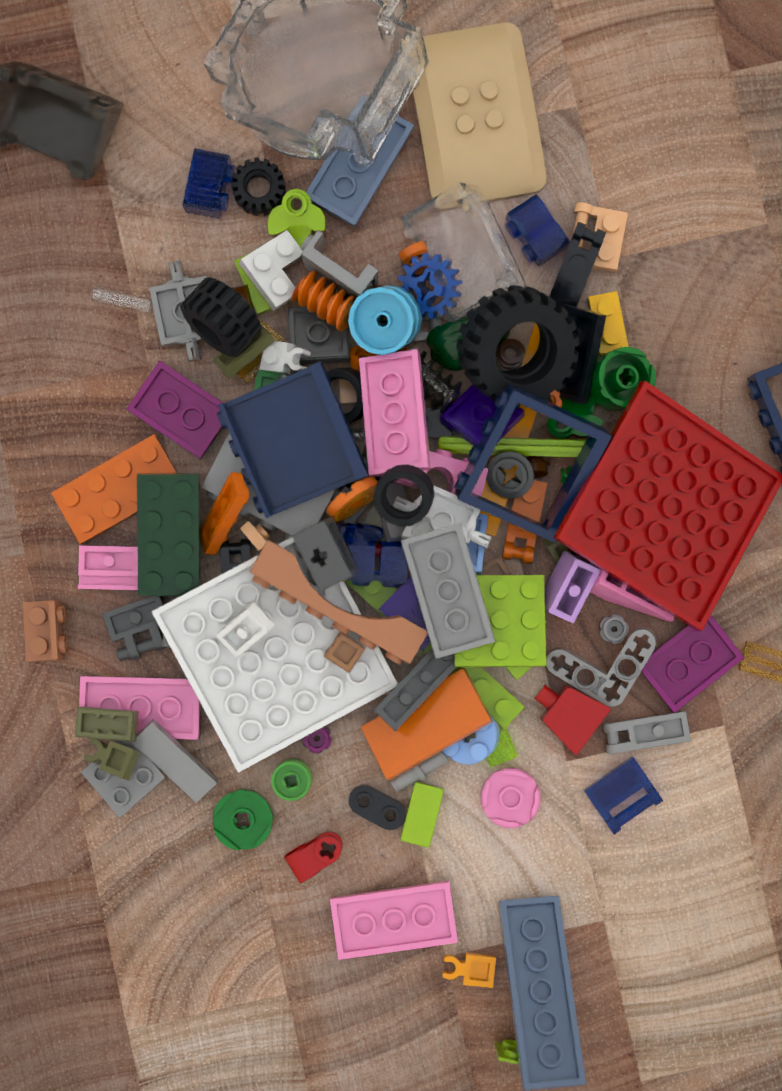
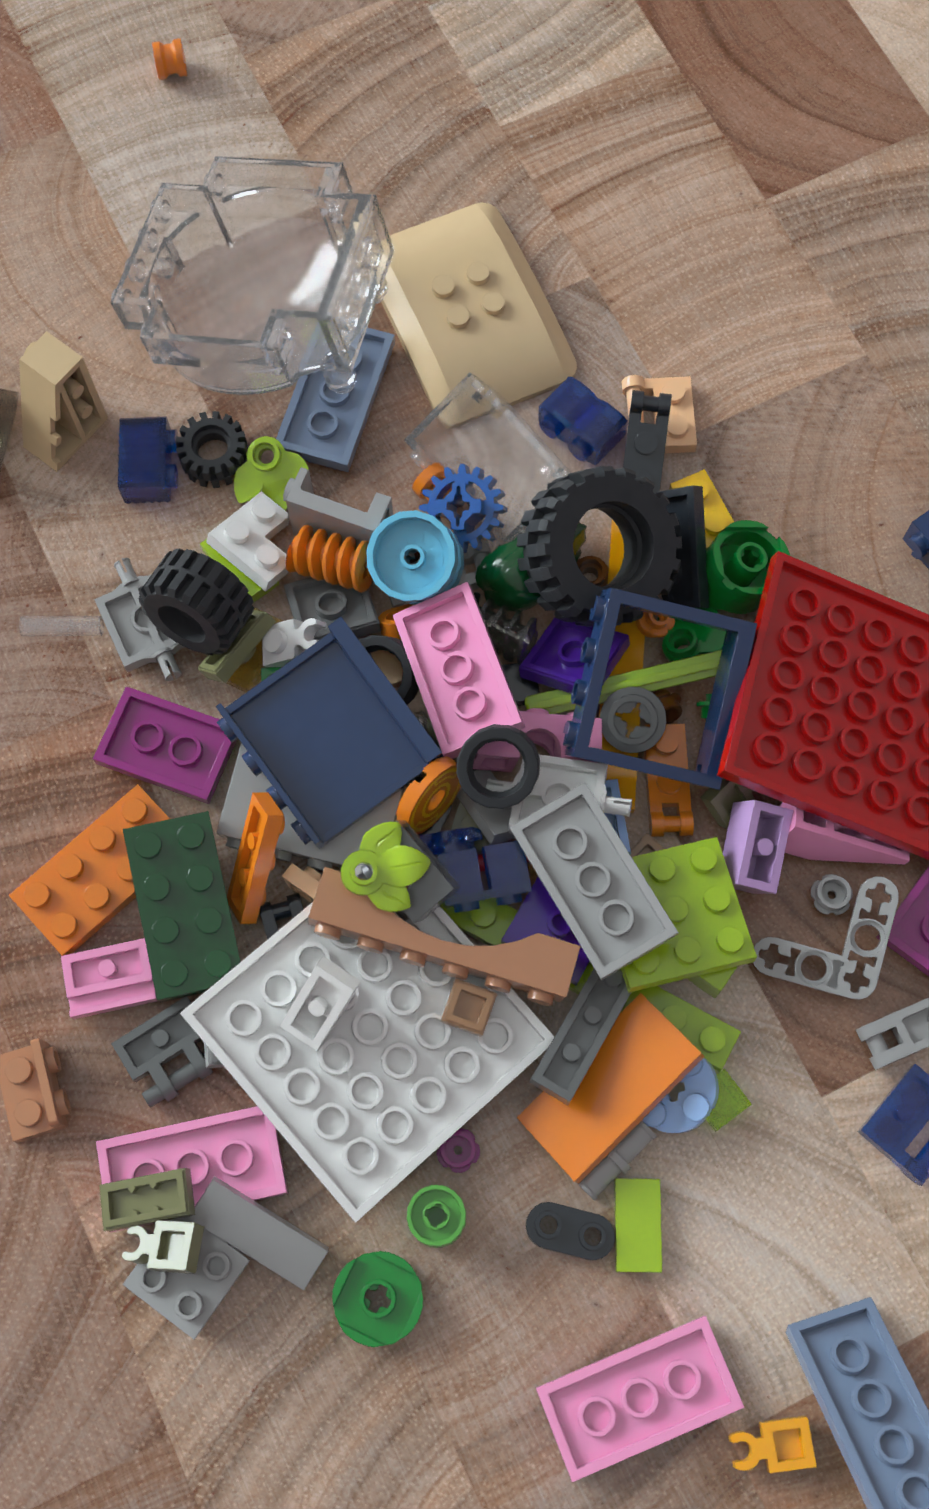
camera: 10 degrees left, 15 degrees down
(149, 127) = (57, 401): none -> tan wedge
(311, 859) = (490, 1333): red piece -> none
(313, 552) = (391, 865): none -> lime plate
(510, 797) = (757, 1169): bright pink tile -> none
(571, 715) = (810, 1027): red torso -> none

